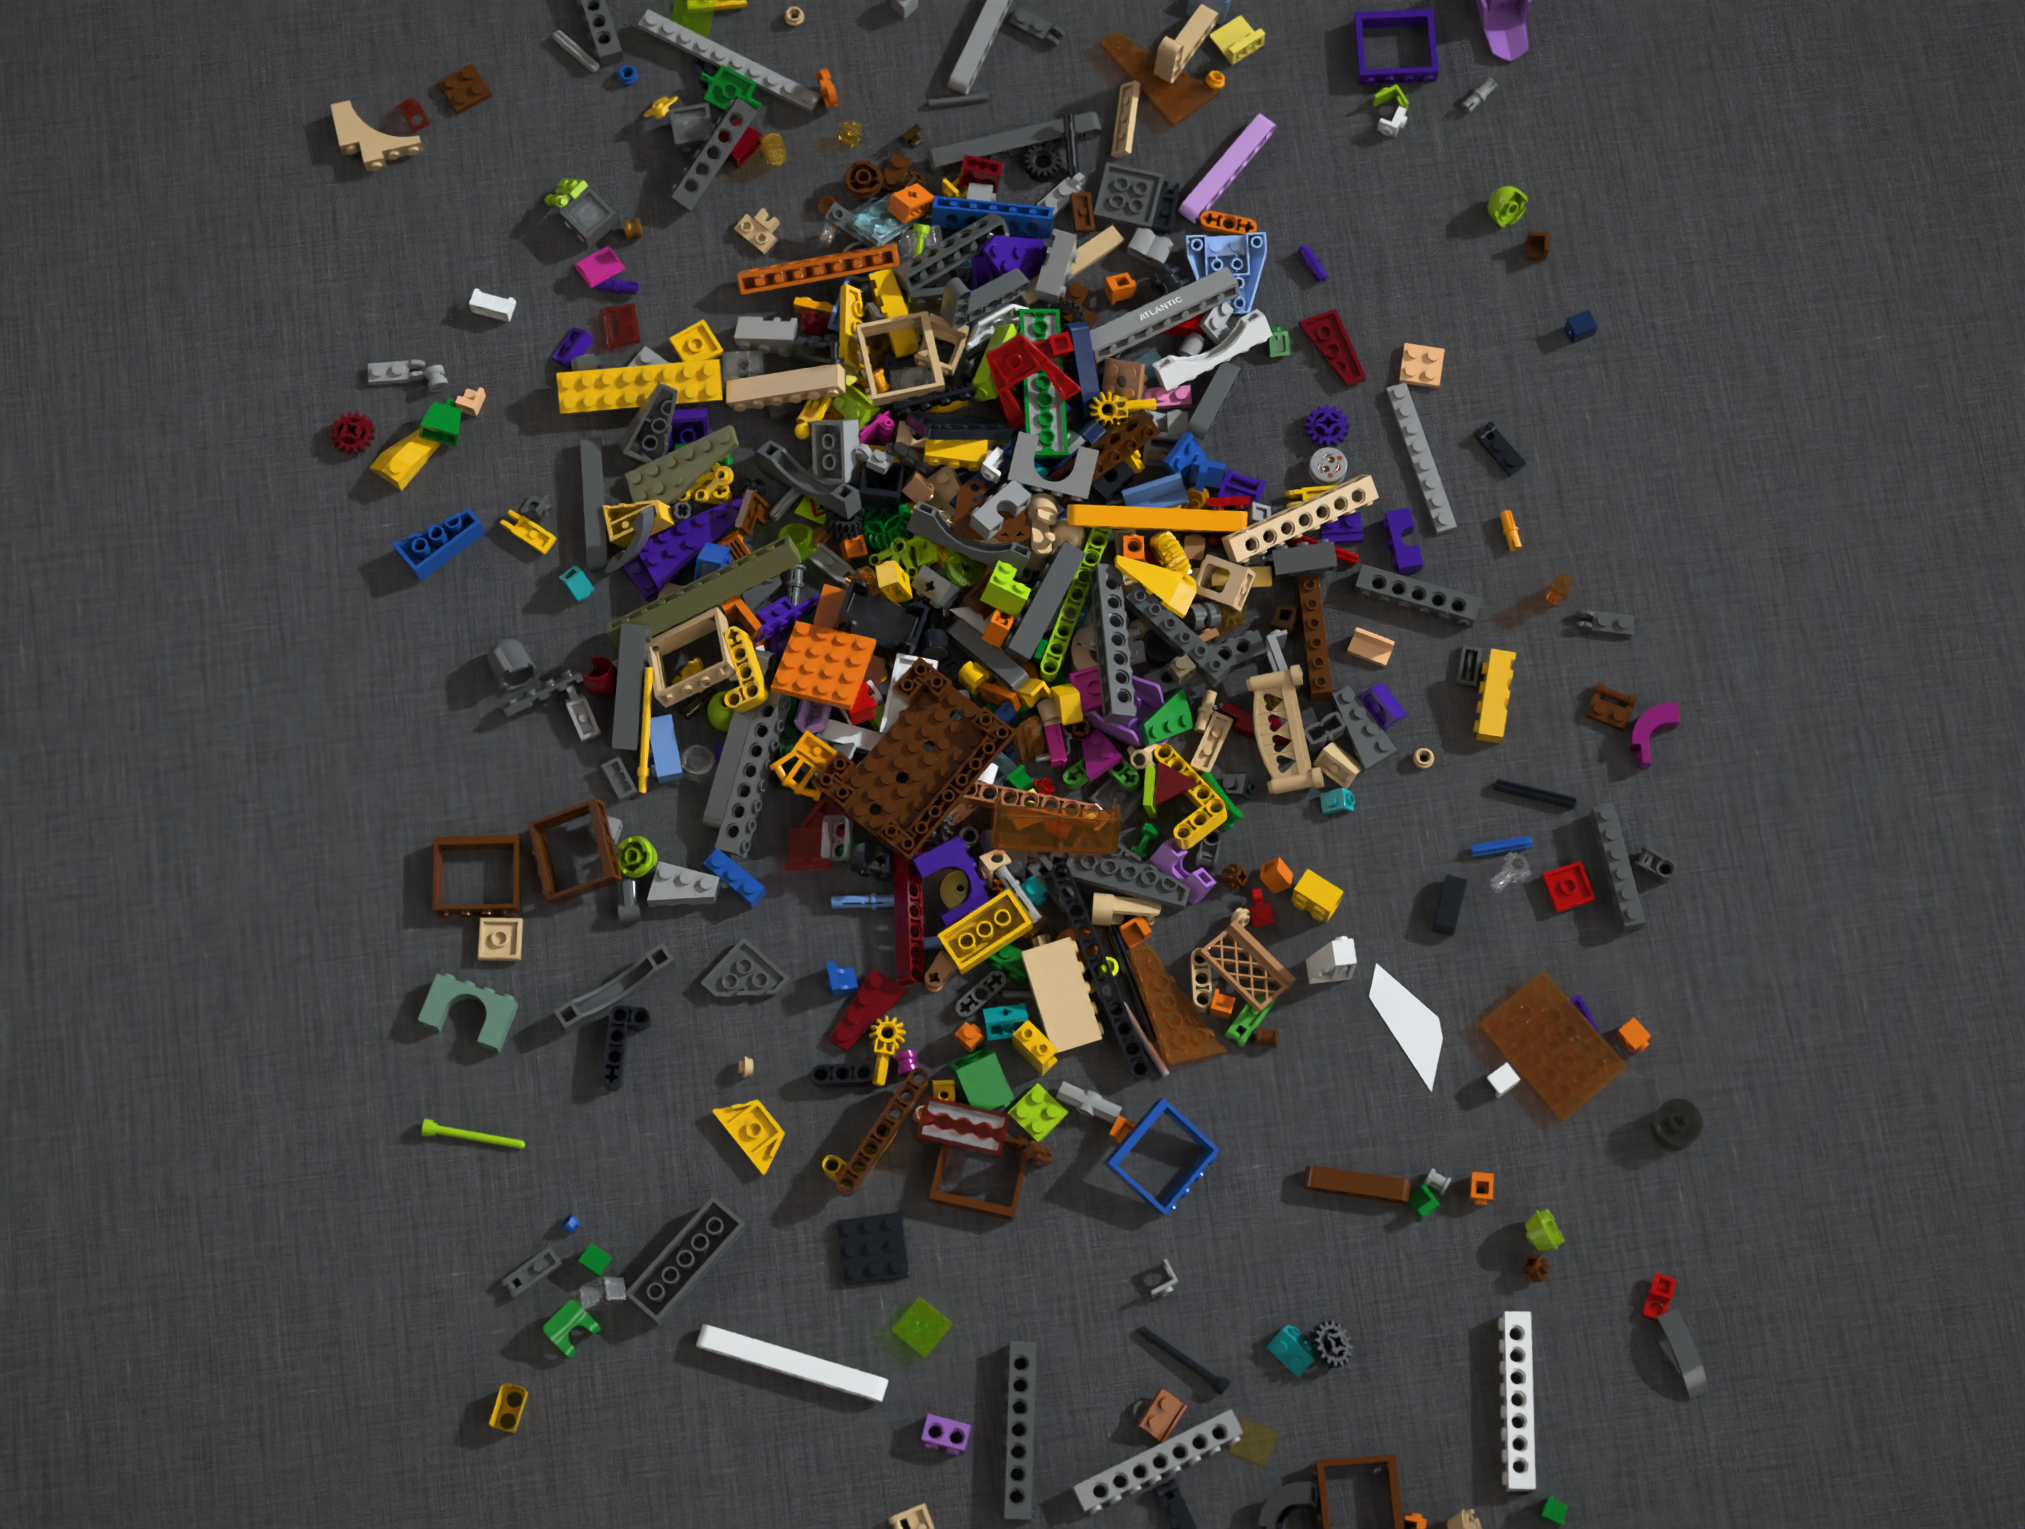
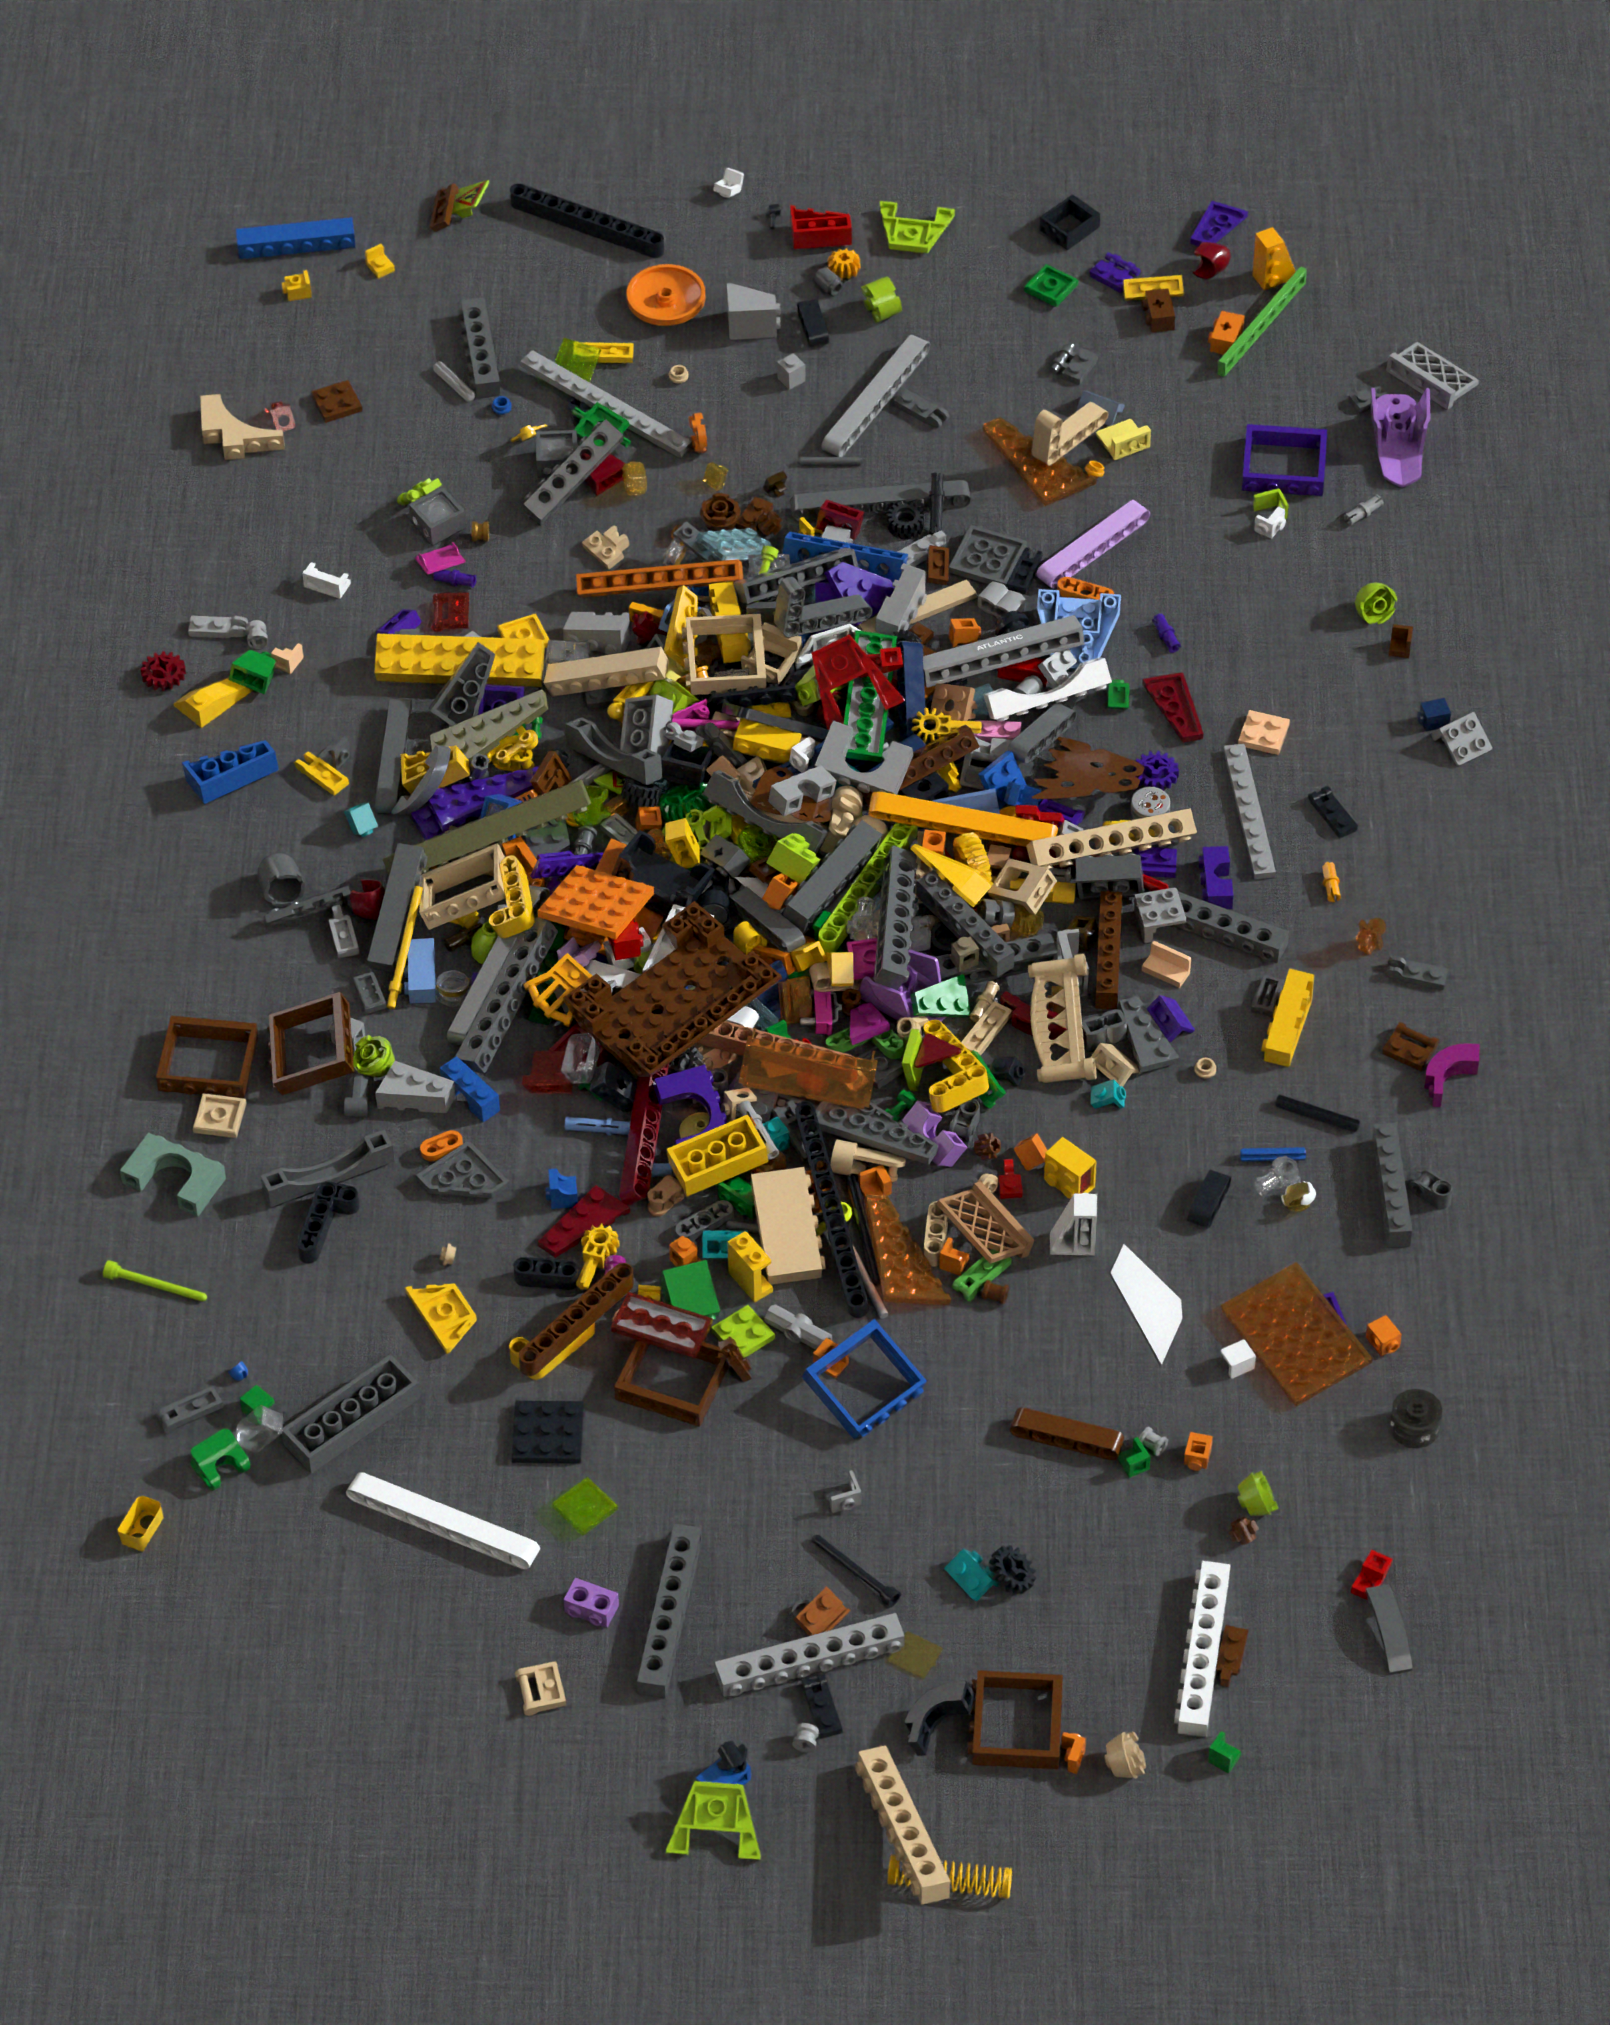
camera: 10 degrees right, 20 degrees down
(717, 943) = (440, 1145): none -> orange plate
(813, 351) = (642, 639): black piece -> none
(891, 438) = (693, 723): none -> dark pink bar
(910, 203) = (762, 532): orange brick -> none
(1080, 646) = (862, 923): none -> clear connector
(1125, 119) = (997, 492): tan plate -> none
(1265, 447) = (1076, 768): none -> reddish brown piece
(1355, 590) = (1157, 910): none -> light grey bracket
(1532, 892) = (1299, 1196): none -> clear yellow hair
(1543, 1400) = (1231, 1653): none -> reddish brown hinge
(1568, 887) = (1338, 1198): red plate -> none
(1611, 349) = (1464, 738): none -> light grey bracket

